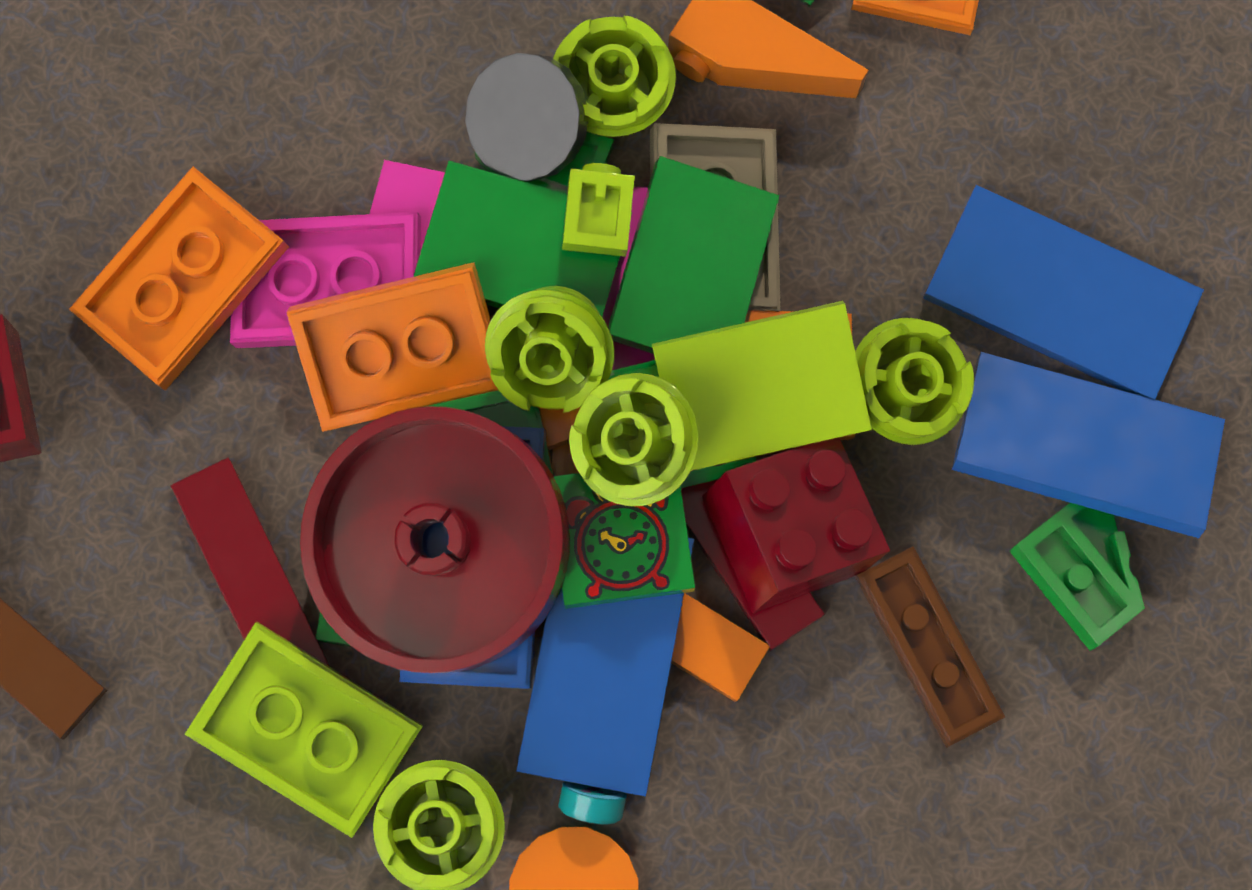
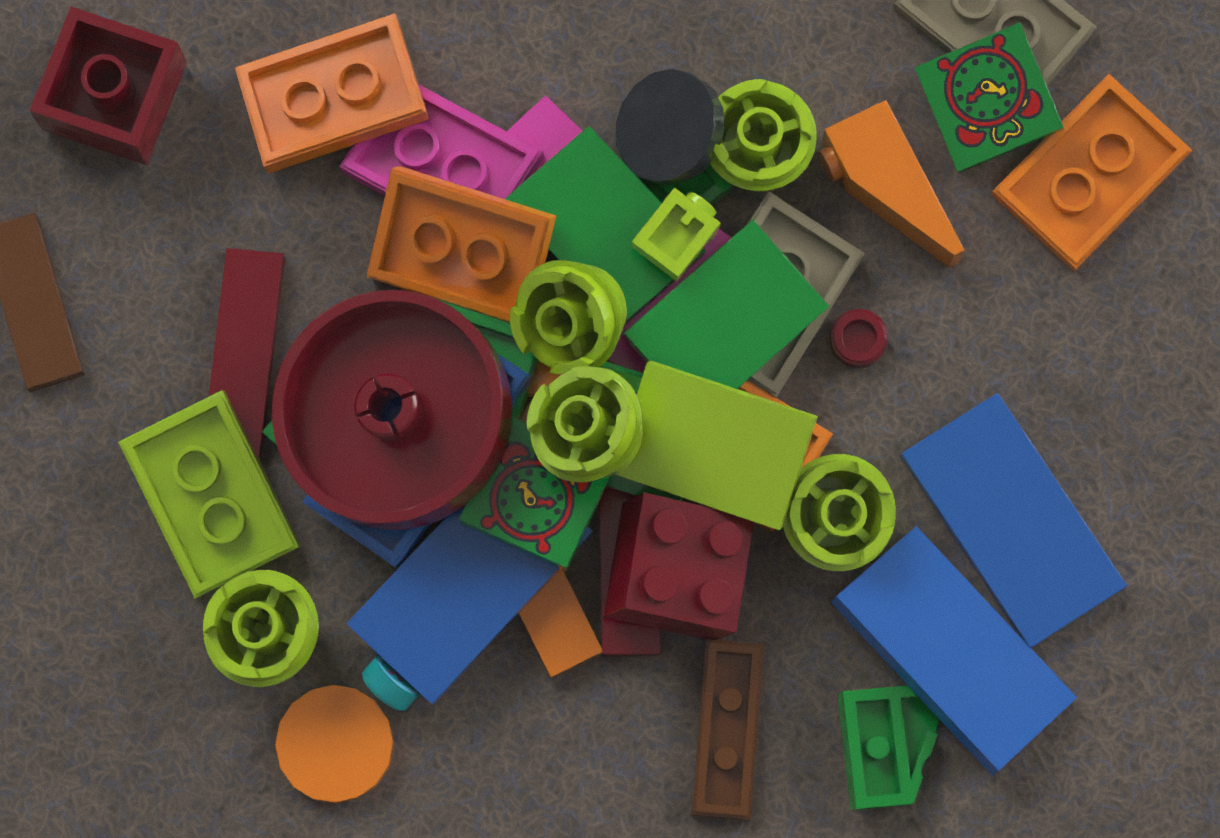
camera: 40 degrees right, 0 degrees up
(817, 212) = (858, 338): none -> dark red tile

